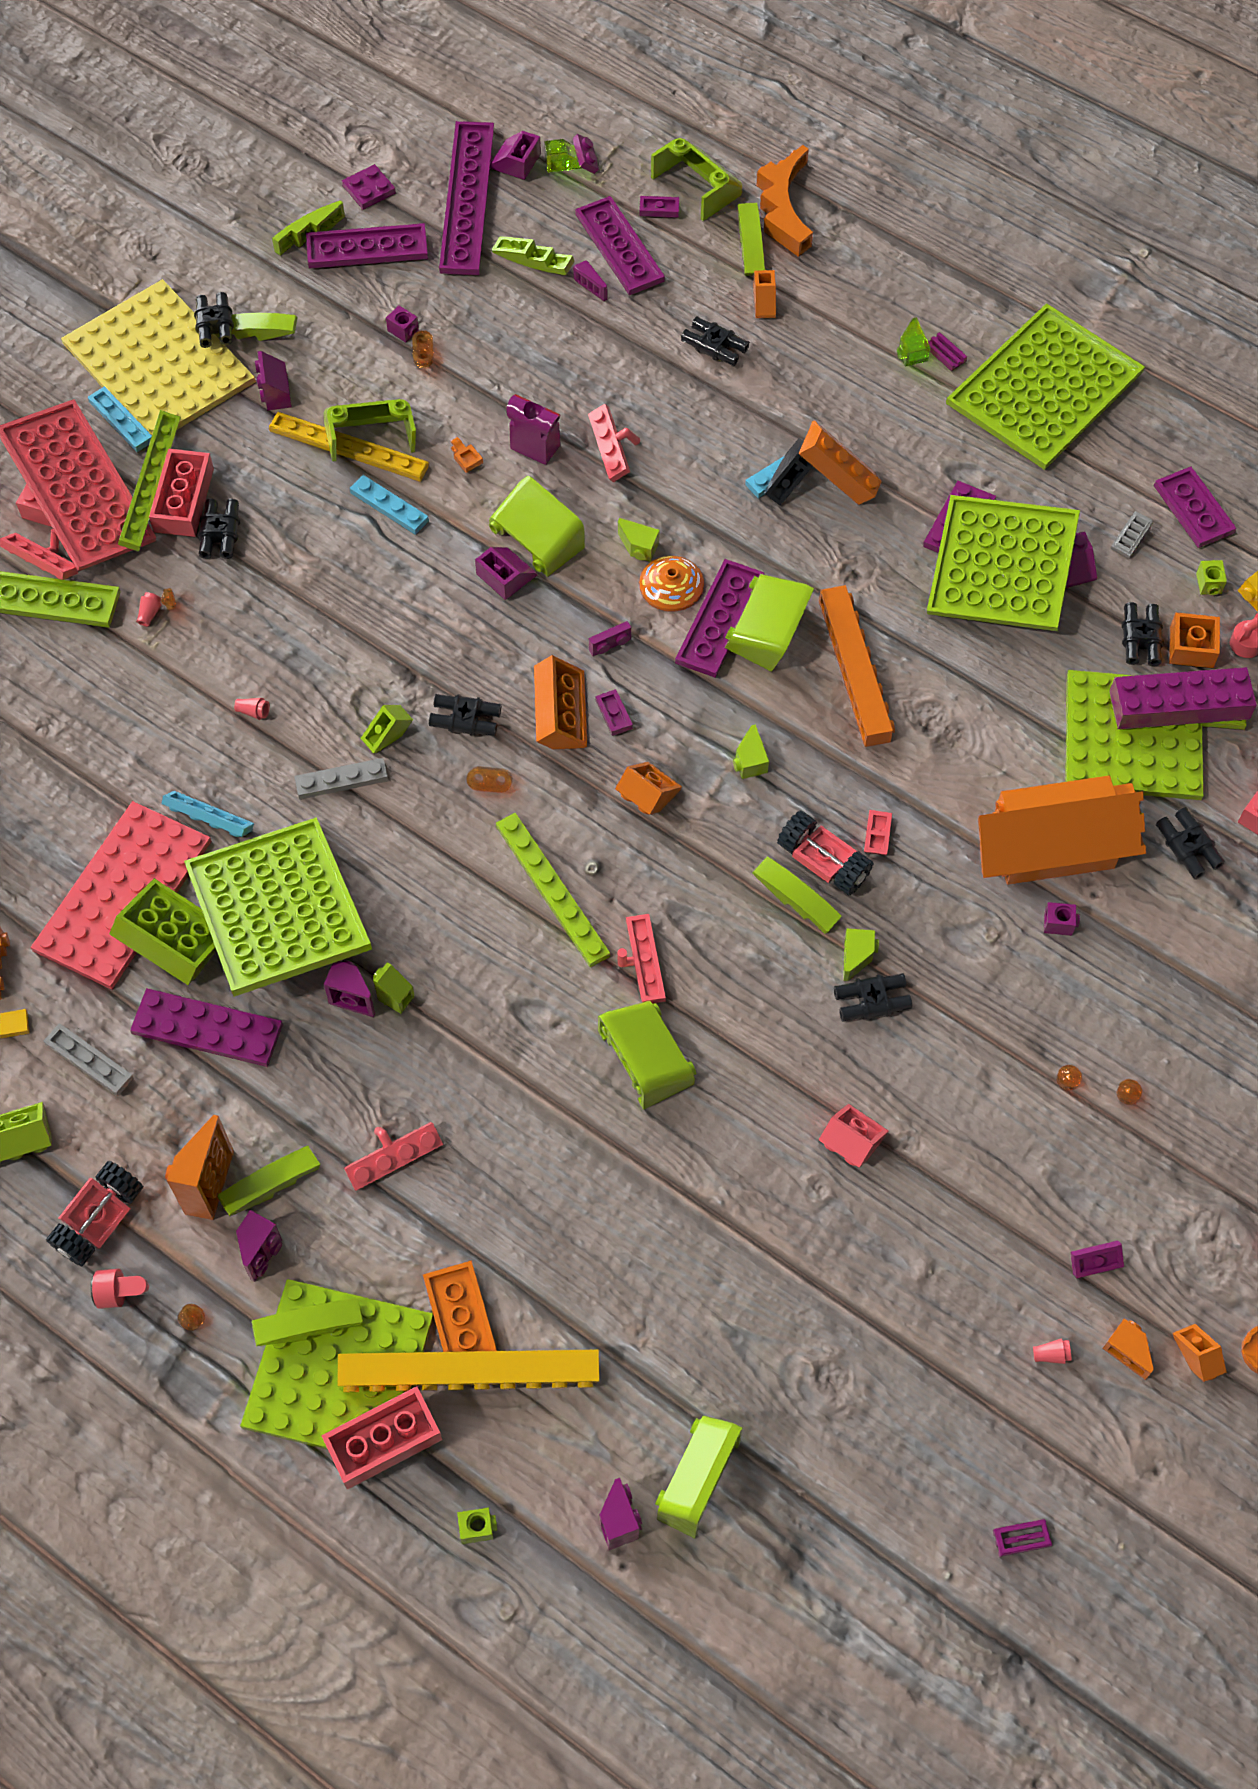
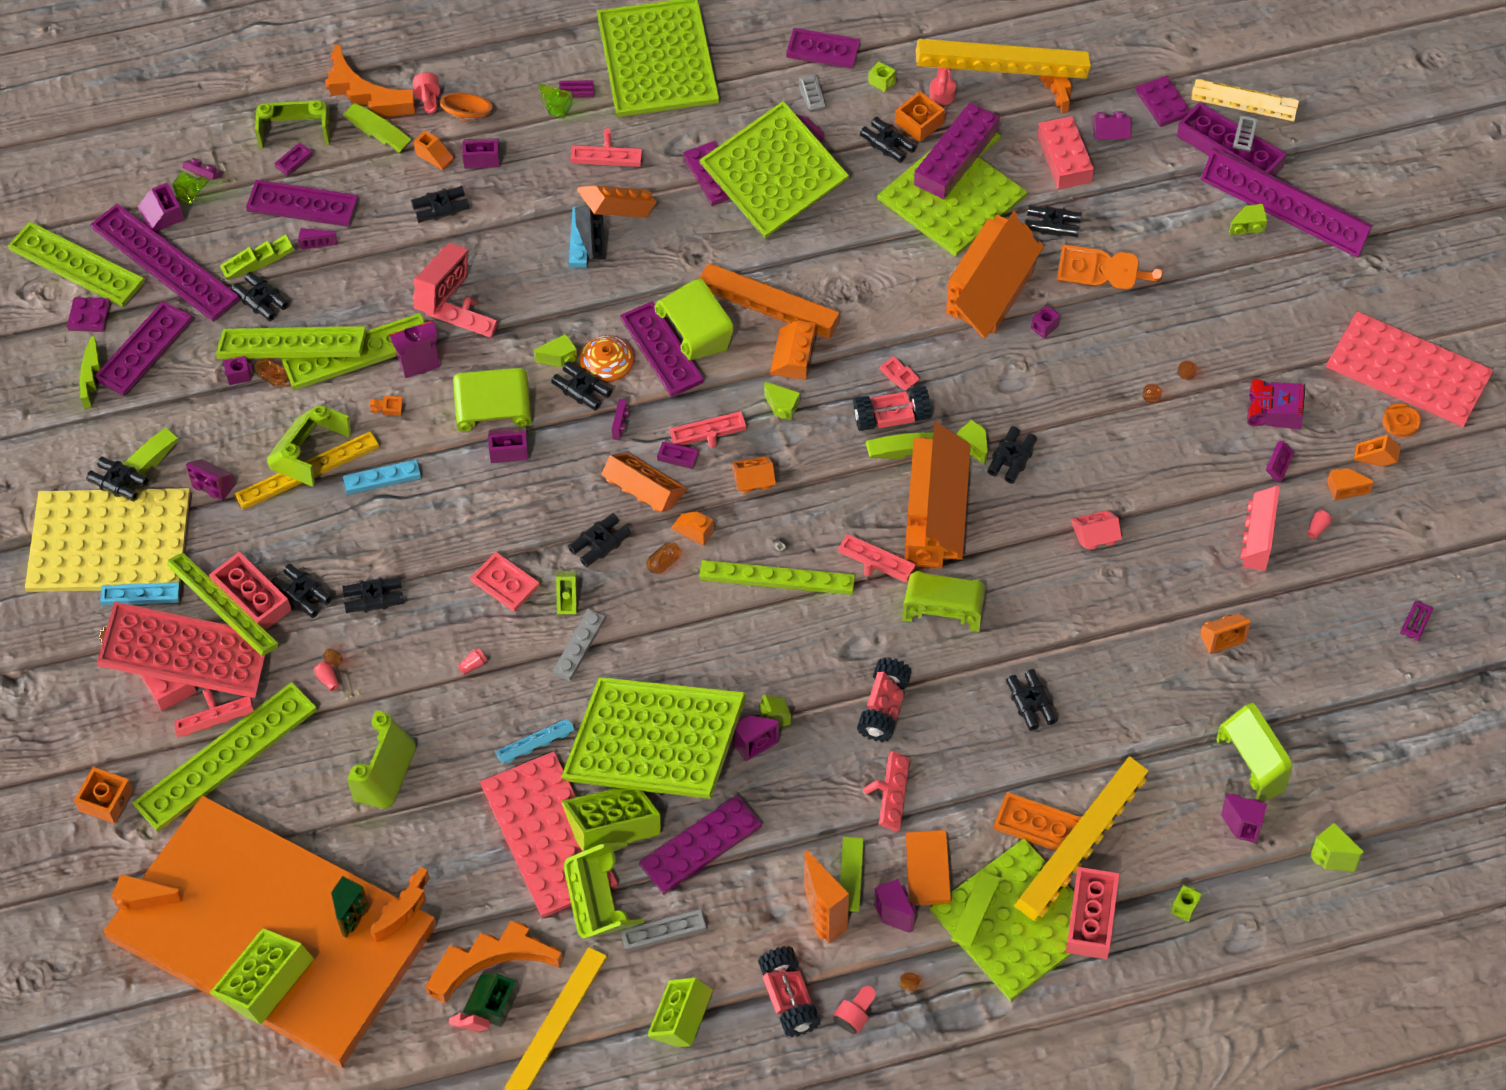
camera: 50 degrees left, 5 degrees down
(75, 976) = (592, 894): none -> lime windscreen
(86, 713) = (382, 779): none -> lime windscreen
(259, 583) = (366, 589): none -> black pin
(328, 1246) = (928, 867): none -> orange tile
(357, 673) = (505, 581): none -> coral plate
(409, 142) = (76, 264): none -> lime plate
(463, 339) = (291, 342): none -> lime plate
(484, 1075) = (884, 699): none -> plate
(492, 387) = (376, 348): none -> lime plate
(494, 285) = (260, 296): none -> black pin
(546, 782) = (694, 526): none -> orange slope
(603, 1222) = (1031, 699): none -> black pin
(620, 584) = (581, 386): none -> black pin
(624, 393) = (440, 278): none -> coral brick
(650, 1638) = (1336, 850): none -> lime slope
(664, 717) = (708, 429): none -> coral plate
(752, 961) = (937, 498): none -> orange panel
(799, 329) = (481, 153): none -> magenta slope
(820, 726) = (794, 350): none -> orange slope
(825, 245) = (427, 89): none -> coral piece
(832, 1344) = (1225, 632): none -> orange slope
(836, 282) = (465, 106): none -> orange dish
(893, 424) = (606, 155): none -> coral plate
(991, 1296) = (1260, 528): none -> coral slope
(1164, 1208) = (1276, 404): none -> magenta piece
(1171, 922) = (1082, 267): none -> orange plate

